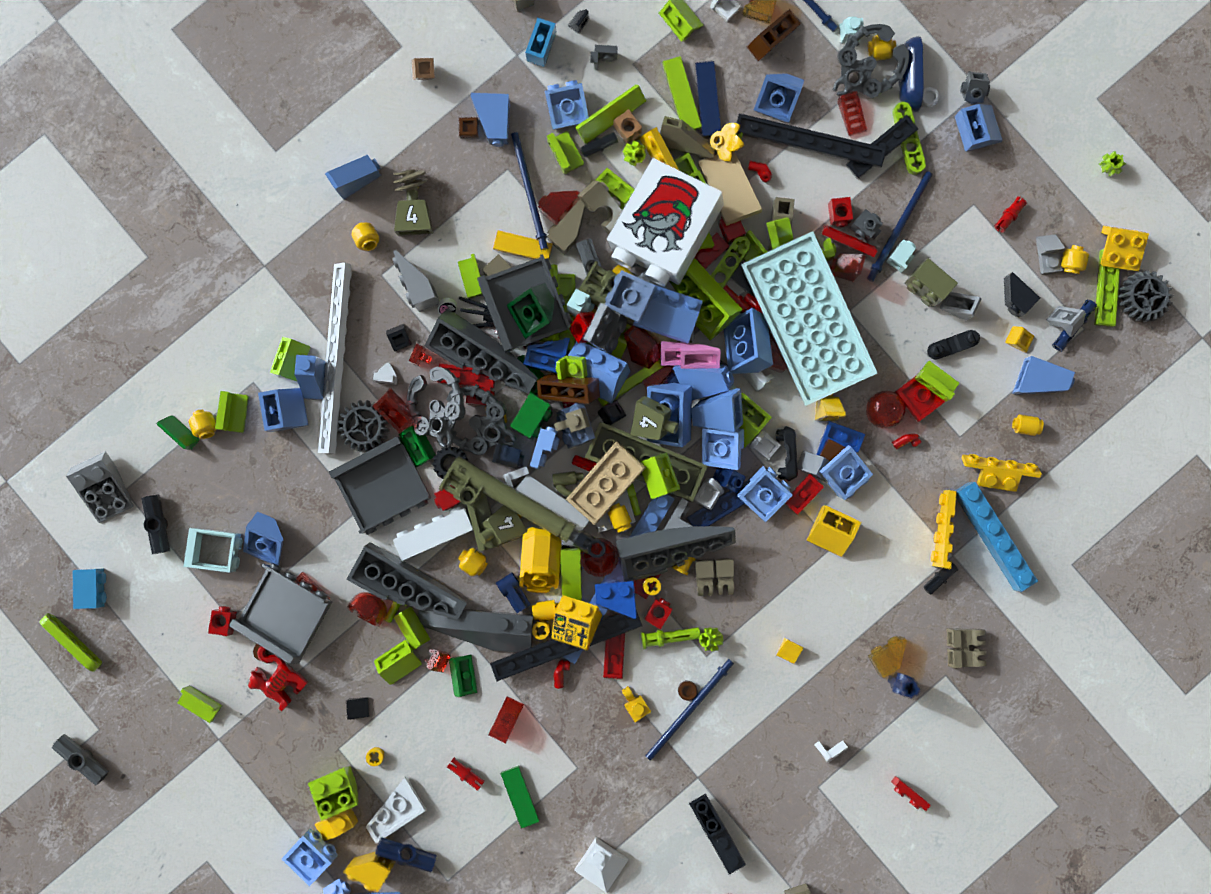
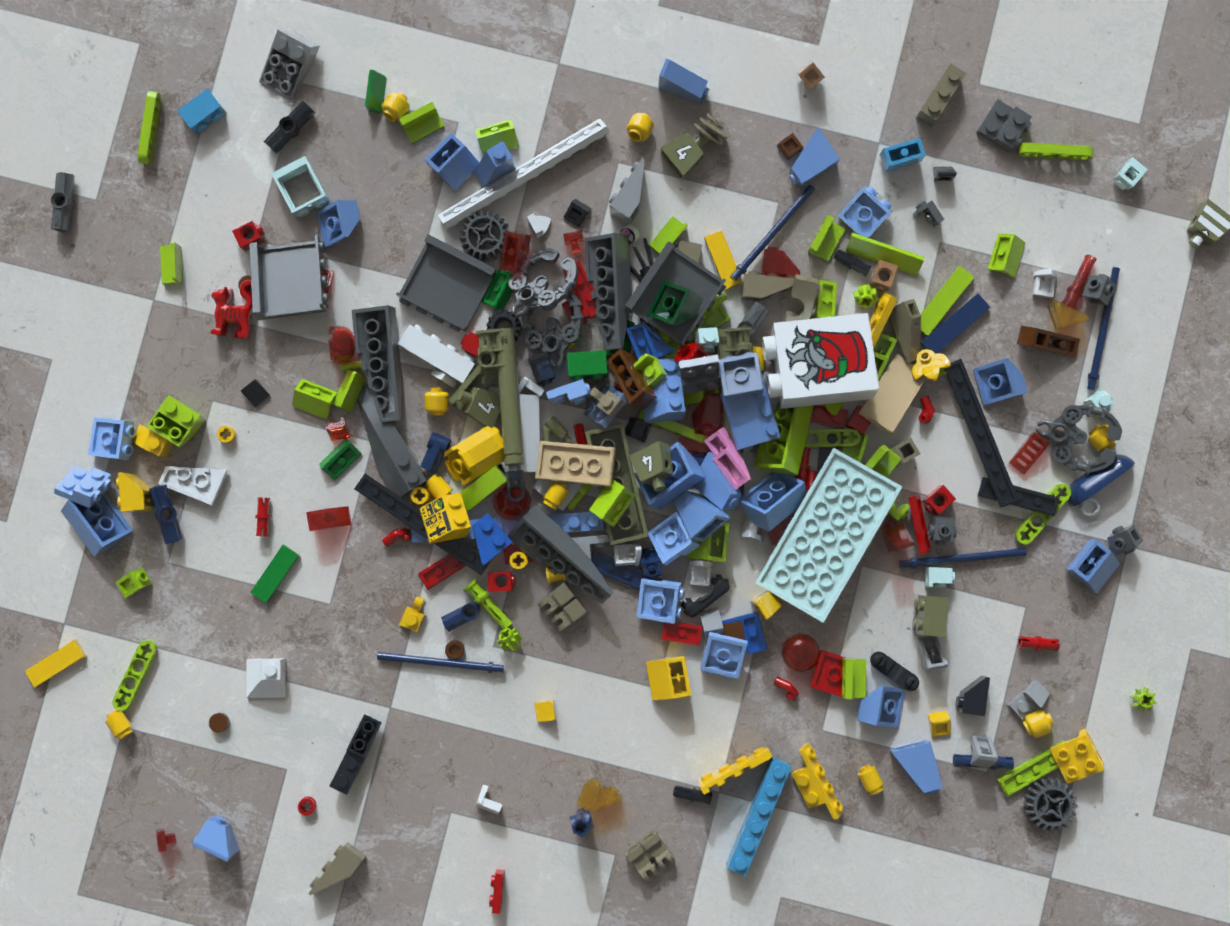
camera: 55 degrees right, 0 degrees up
(456, 542) = (444, 377): none -> white tile
(663, 667) = (459, 616): none -> dark blue piece
(976, 375) = (882, 707): none -> medium blue slope

